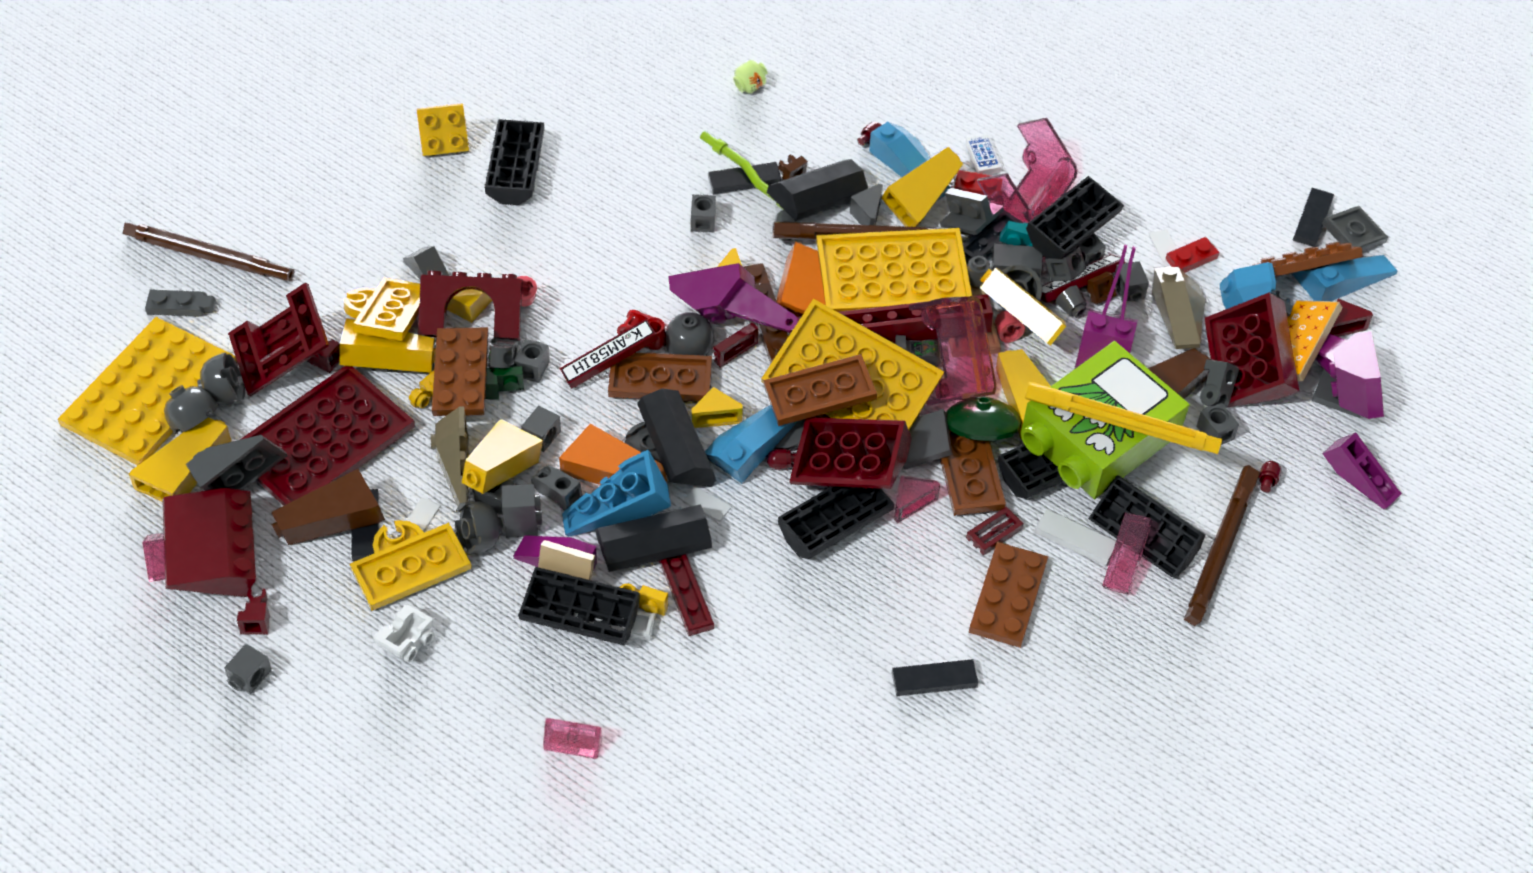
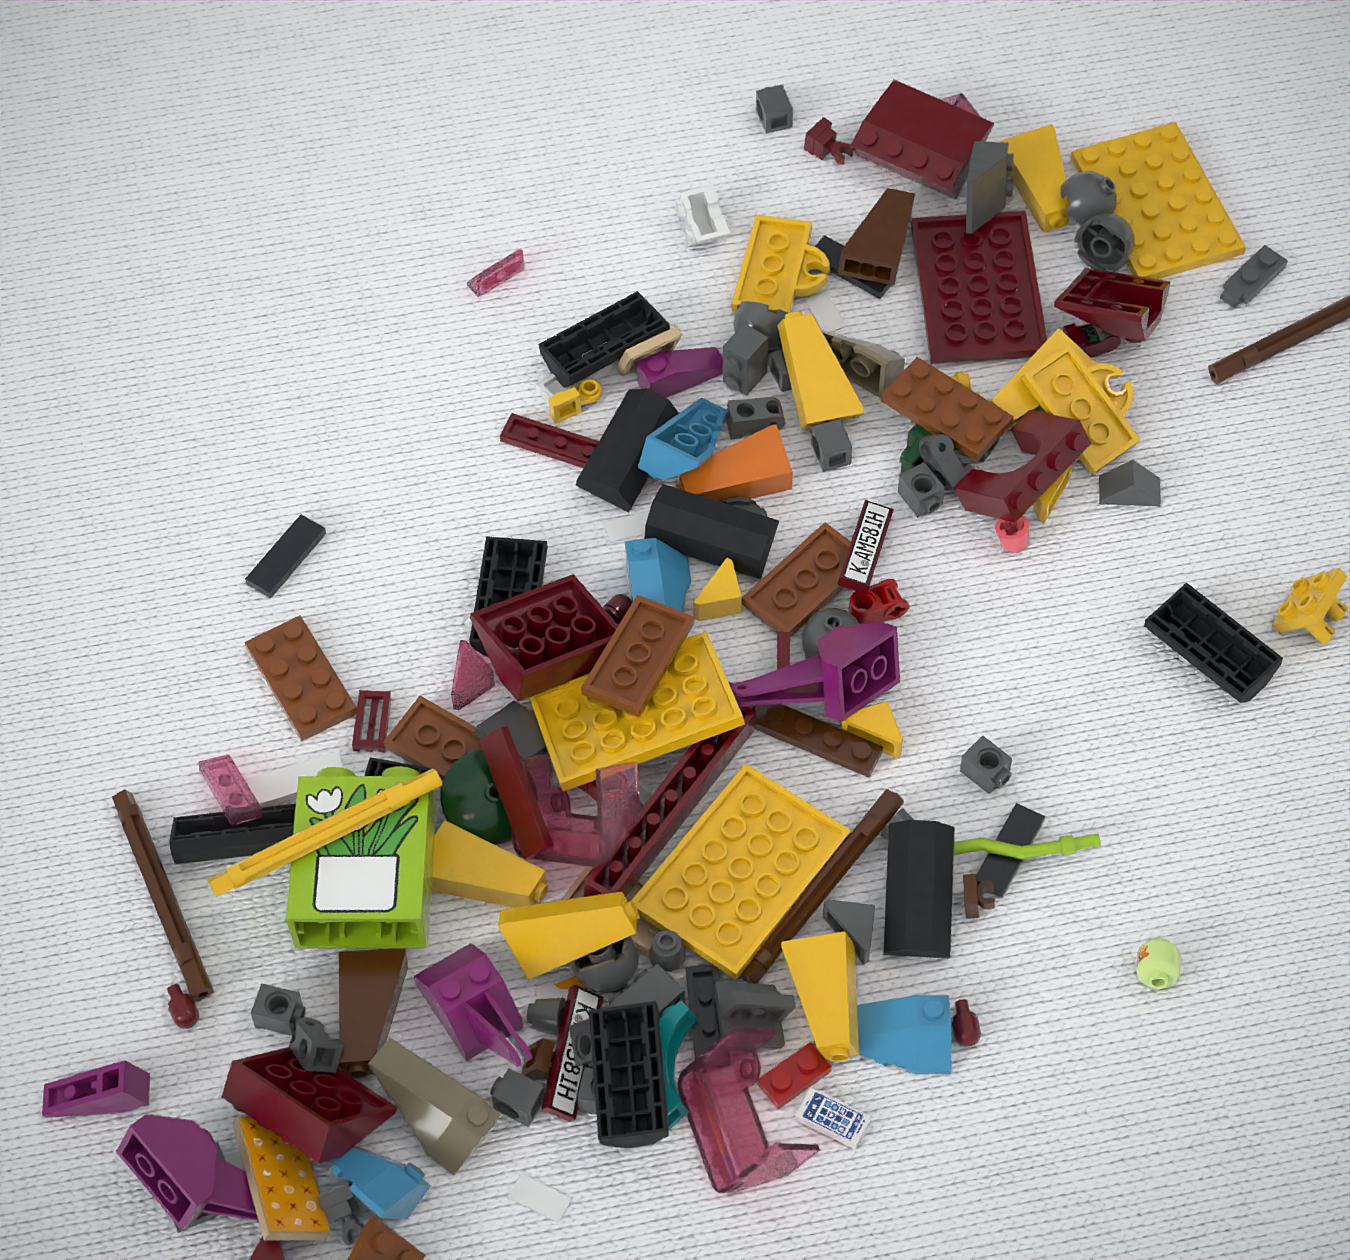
camera: 135 degrees right, 5 degrees up
(801, 280) = (793, 763): orange slope -> none
(976, 383) = (516, 793): none -> dark red tile
(1193, 255) = (496, 1207): red plate -> none

